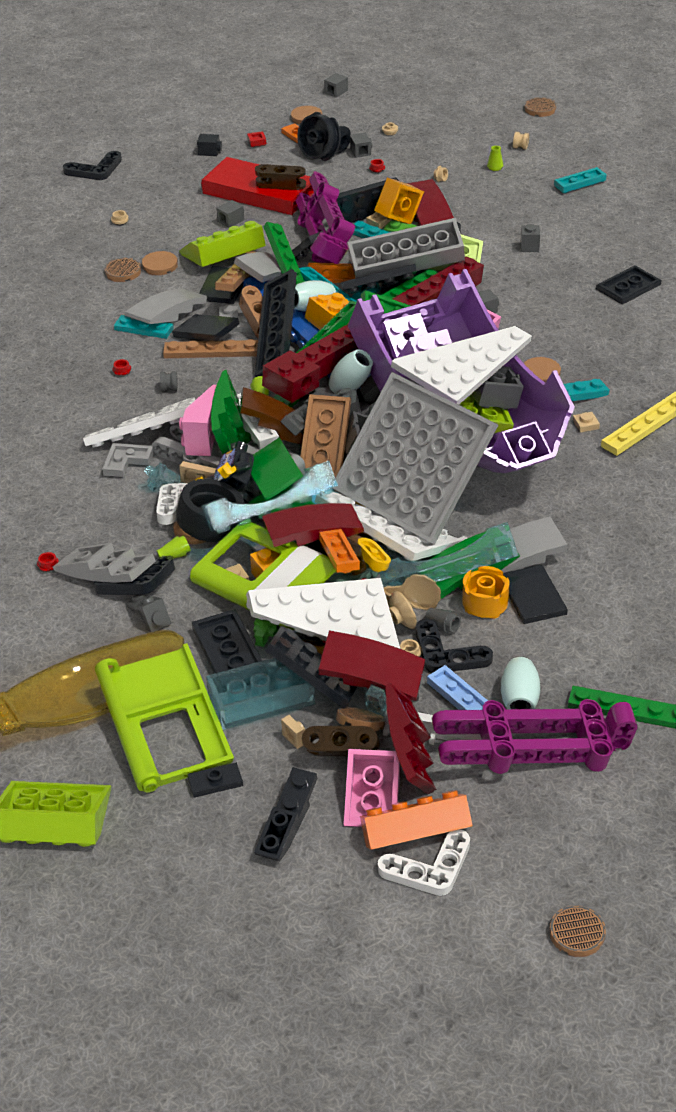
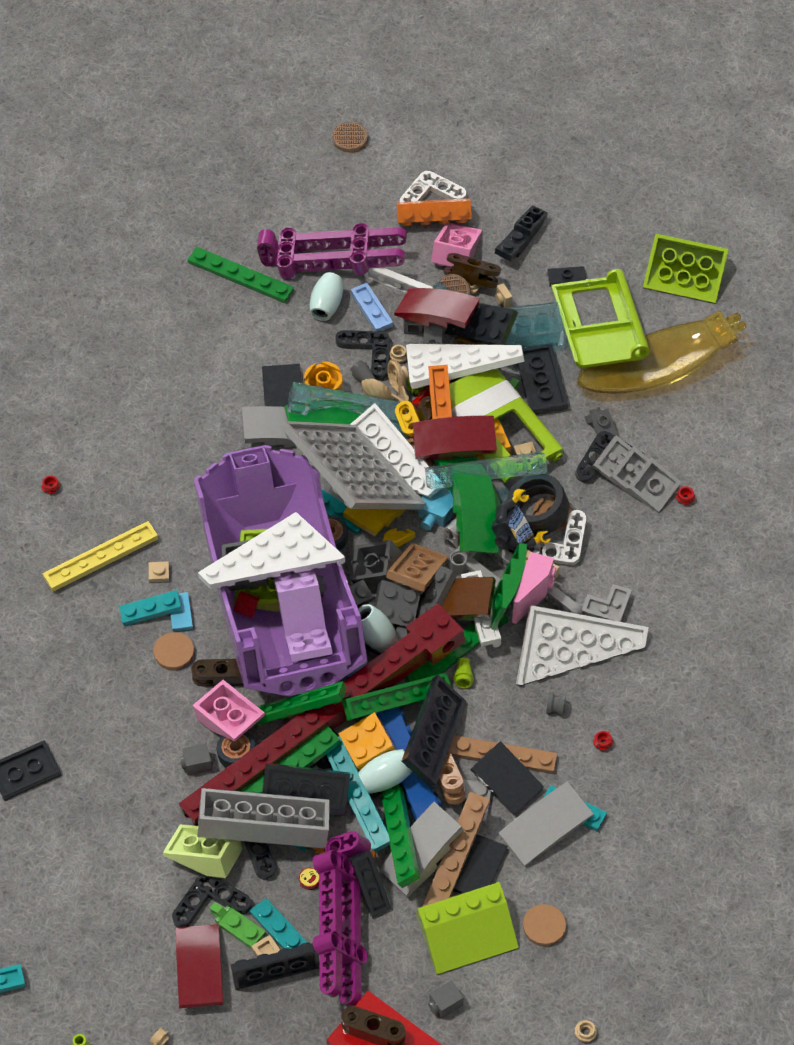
camera: 170 degrees left, 15 degrees up
(122, 269) = (589, 921): medium nougat tile -> none
(160, 475) = (576, 566): clear light blue piece -> none
(176, 548) = (575, 486): lime cone -> none
(399, 201) = (238, 941): light orange brick -> none
(408, 738) = (423, 251): dark red slope -> none
(530, 238) = (102, 862): dark grey brick -> none

